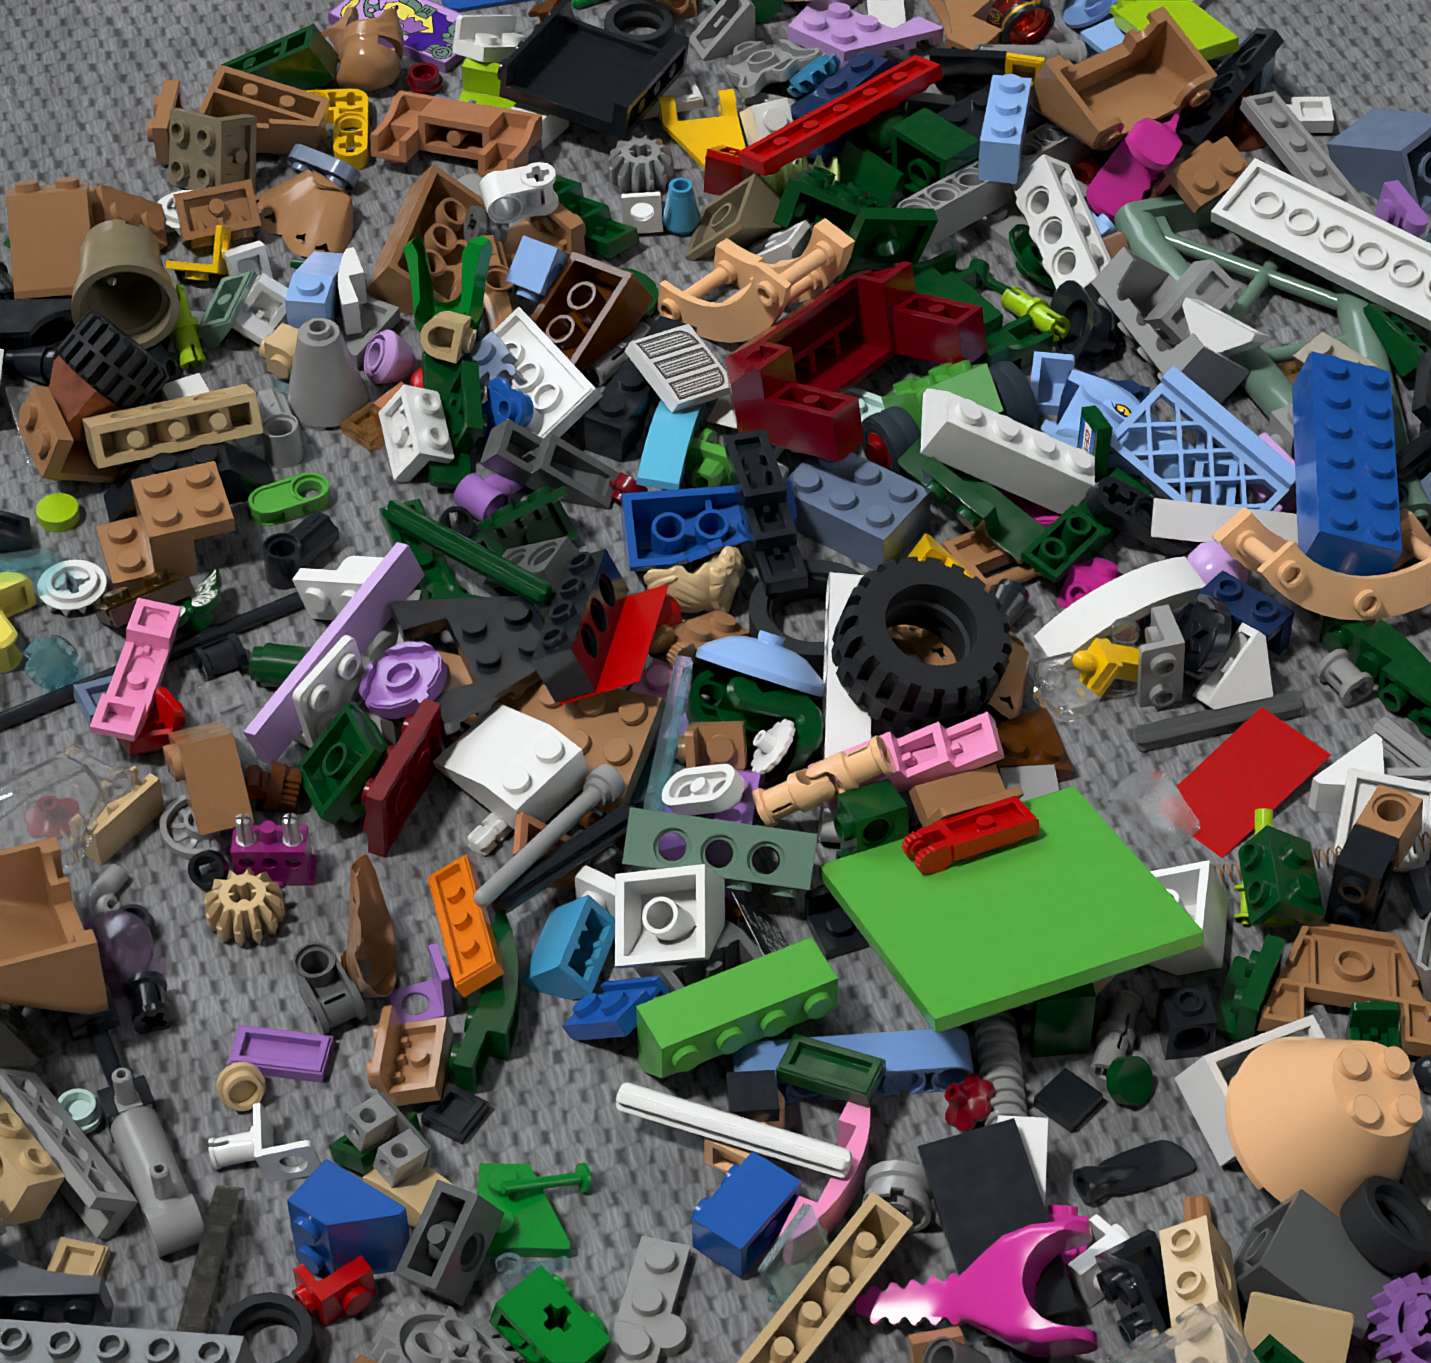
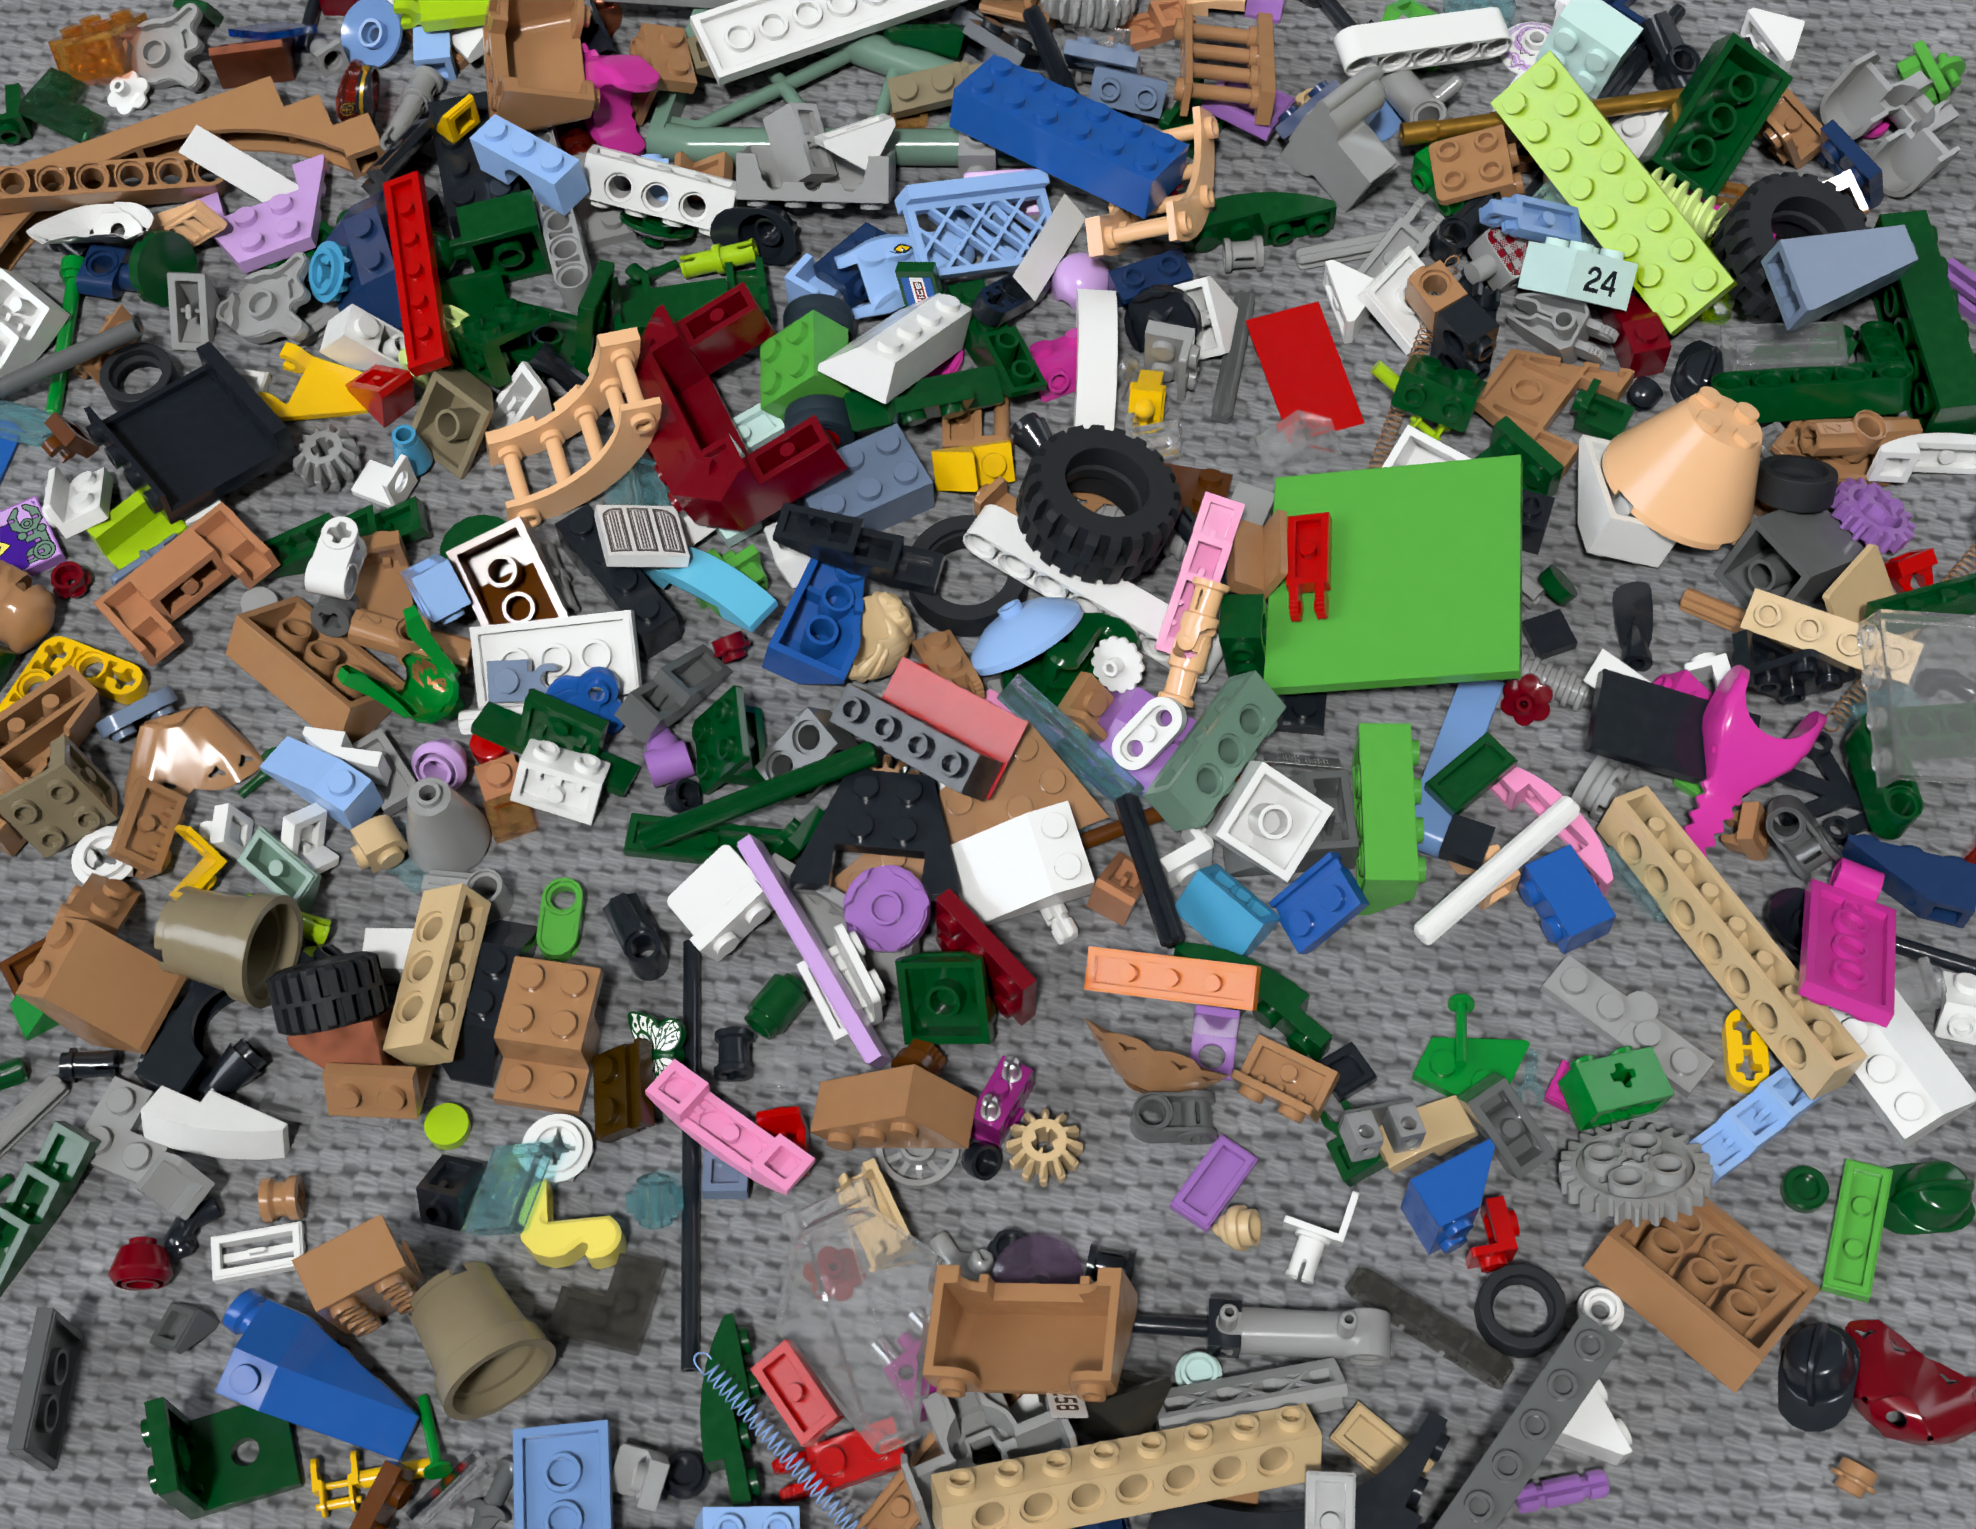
camera: 60 degrees left, 15 degrees up
(448, 336) = (476, 697): tan plate -> none
(600, 789) = (1089, 810): light grey piece -> none

